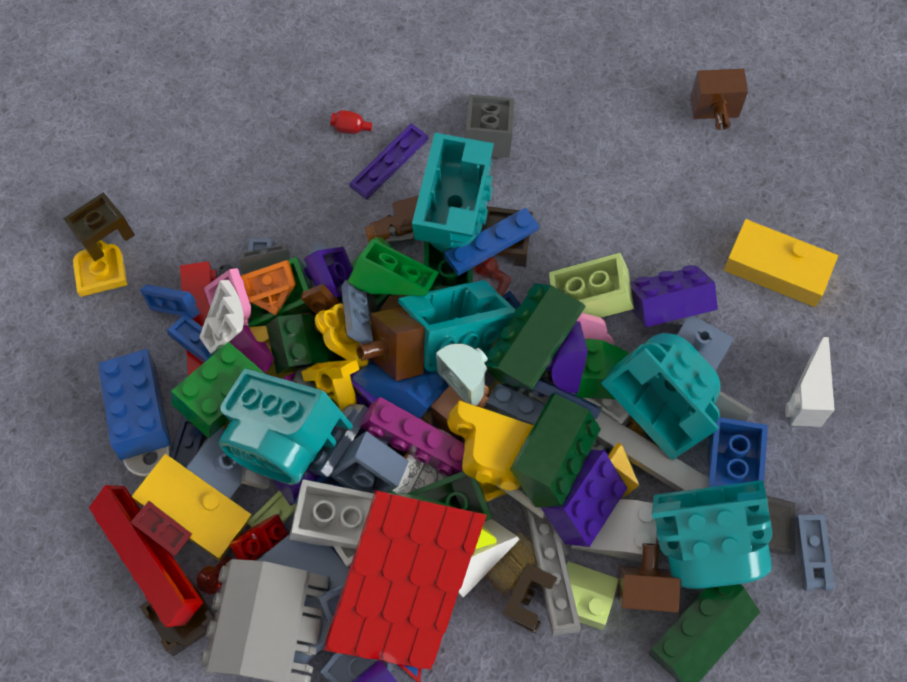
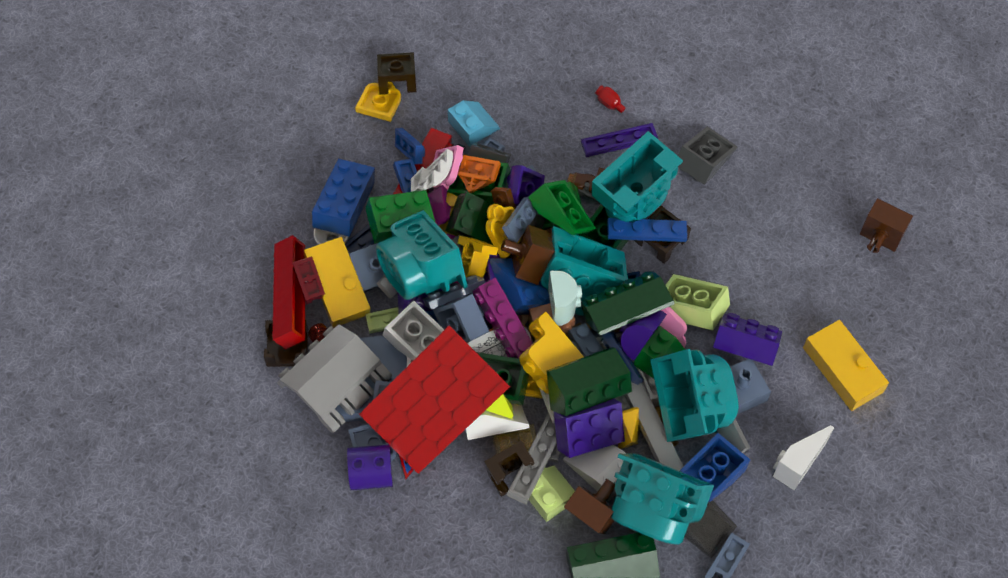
camera: 30 degrees right, 5 degrees down
(218, 233) = (471, 121): none -> medium azure slope
(259, 538) = (365, 327): red slope -> none
(490, 269) = (636, 248): clear red plate -> none

